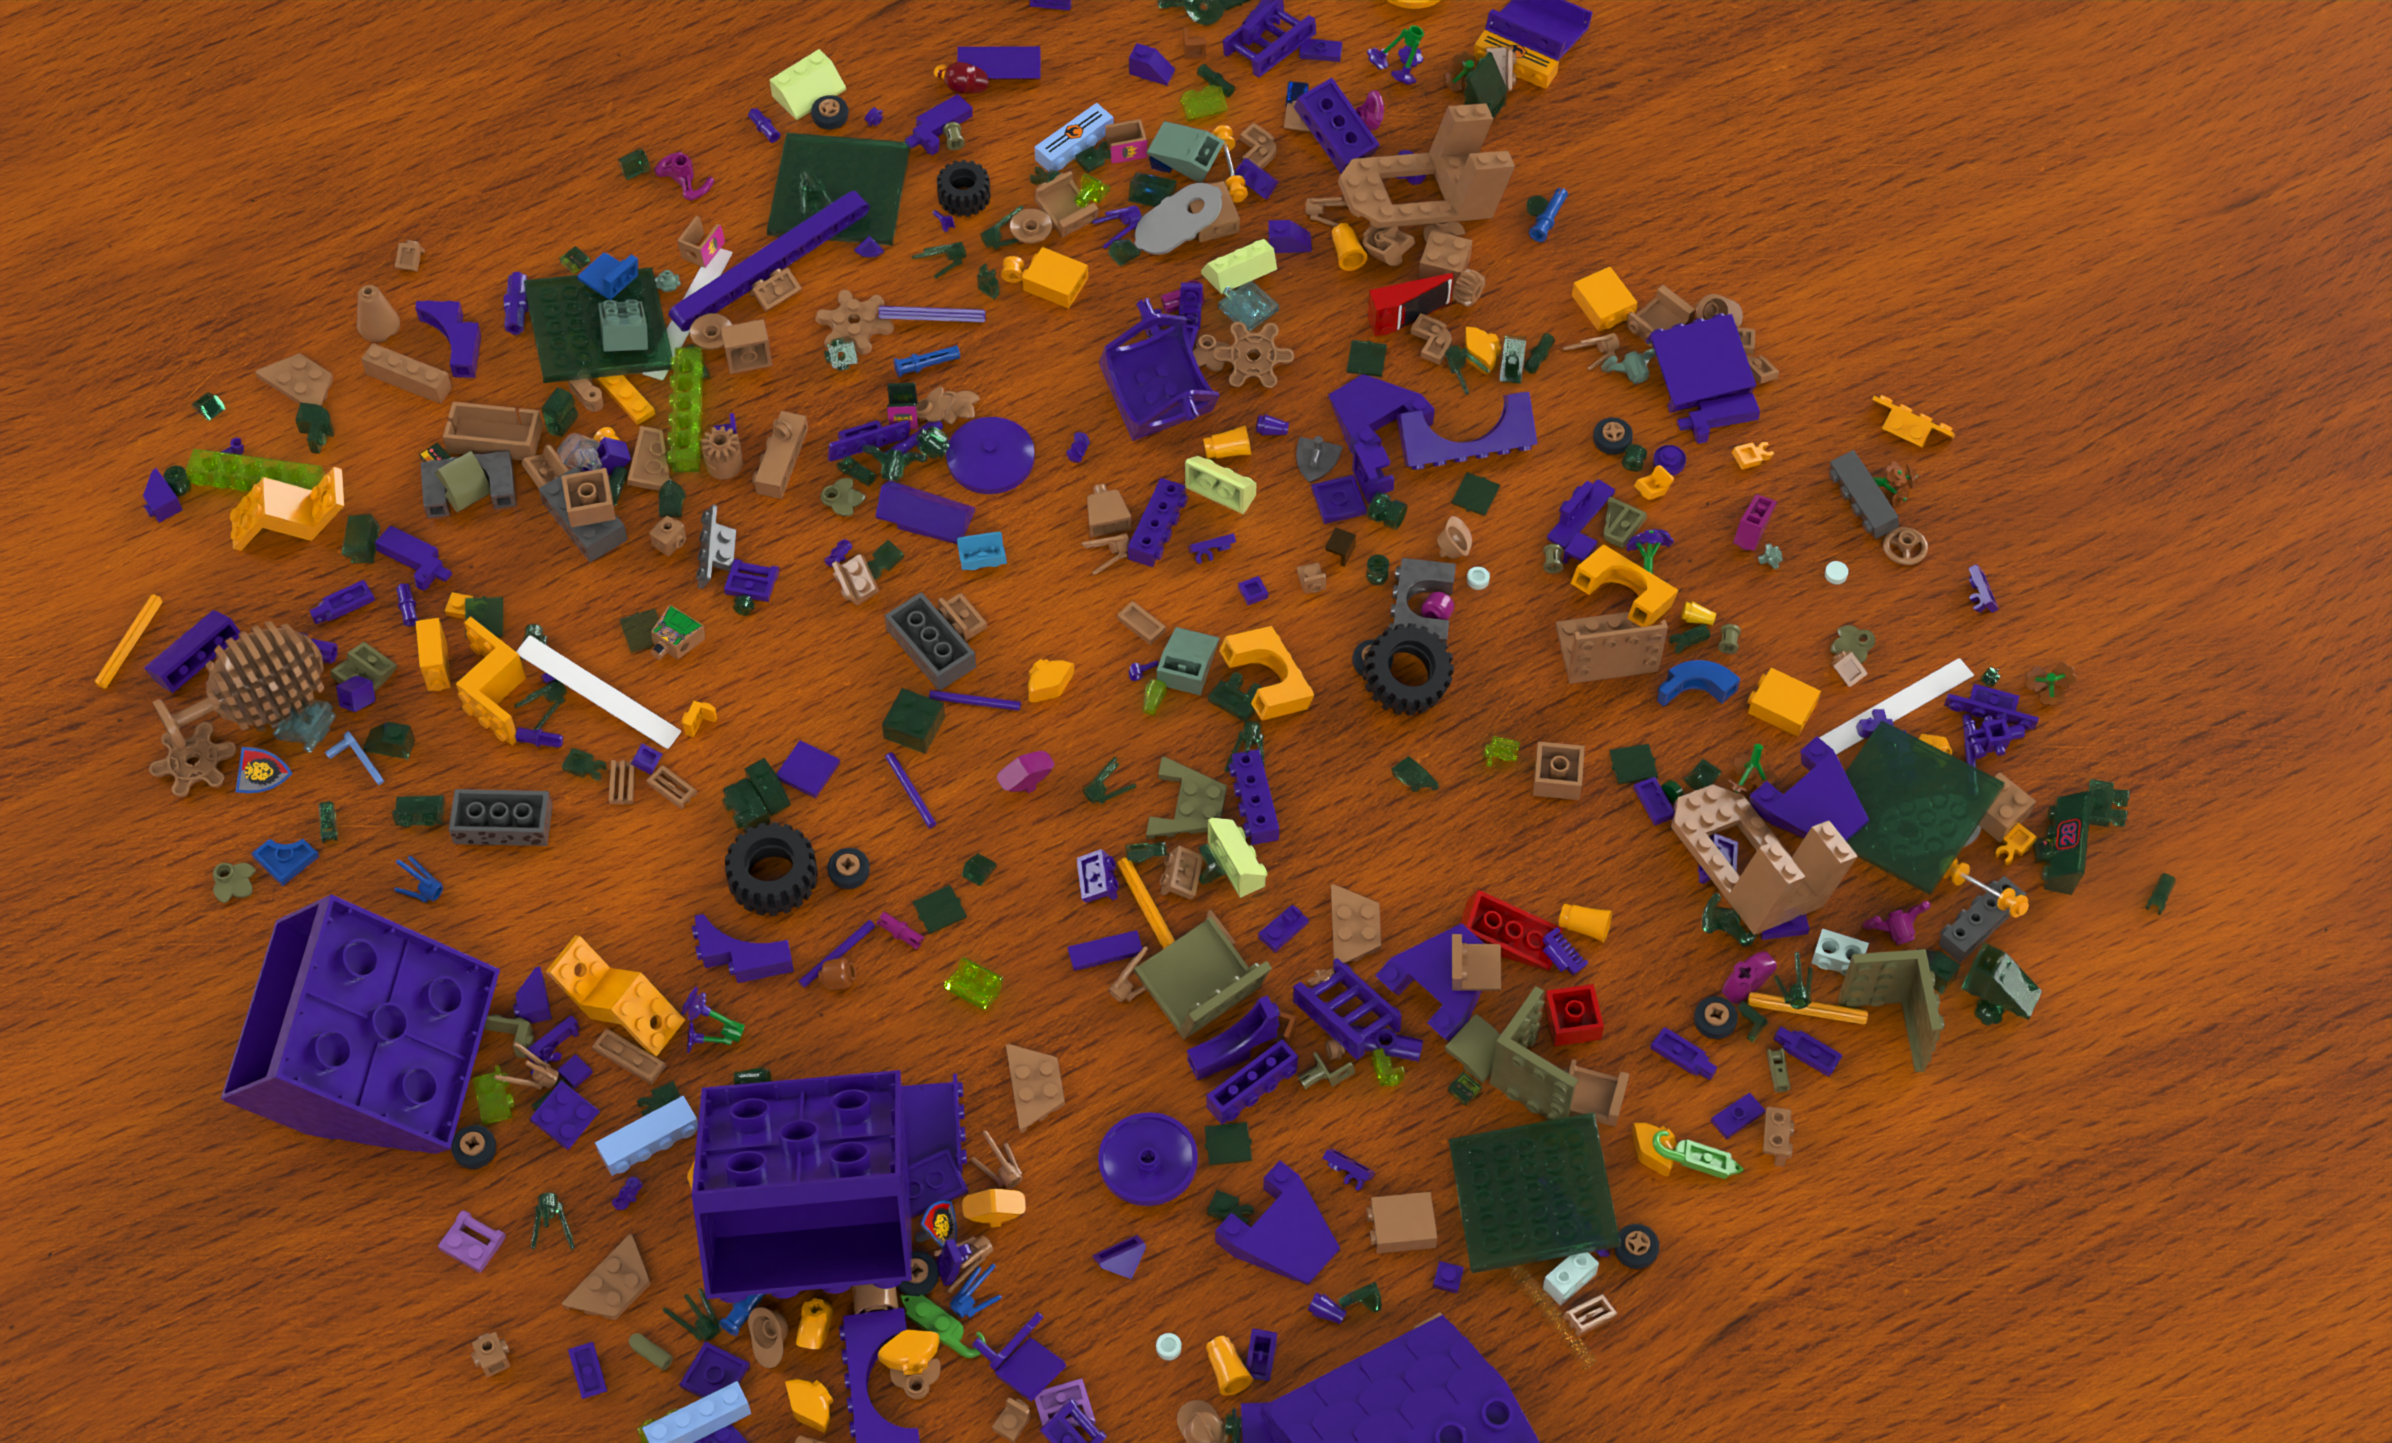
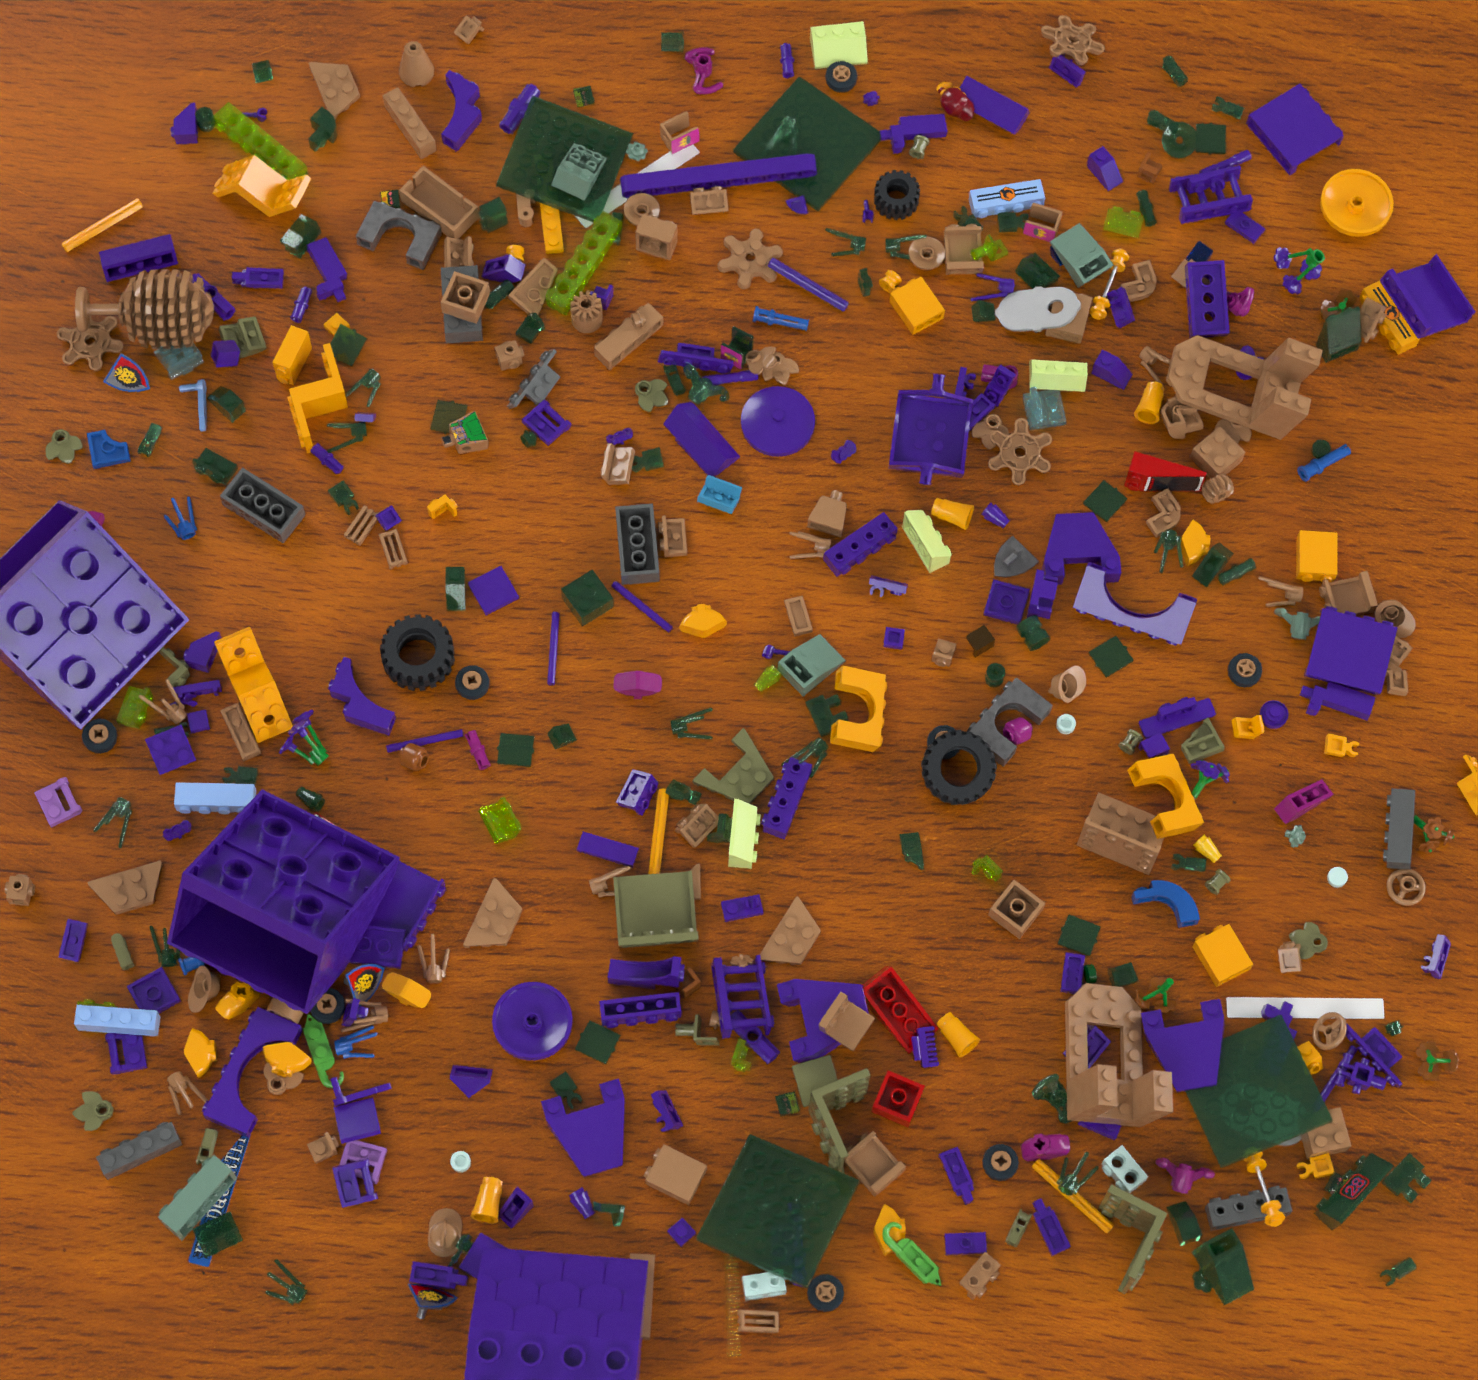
camera: 30 degrees right, 10 degrees up
(464, 481) = (393, 232): olive slope -> none
(580, 452) = (487, 256): clear brick -> none
(598, 692) = (386, 449): white sticker -> none
(609, 275) = (595, 124): blue bracket -> none
(745, 805) = (432, 594): clear green brick -> none
(849, 353) = (721, 280): clear green brick -> none
(932, 442) = (740, 388): clear green head -> none
(1634, 457) = (1248, 697): clear green wheel -> none
(1754, 1017) = (1027, 1180): clear green tile -> none
(1945, 715) = (1333, 1032): none -> medium nougat piece

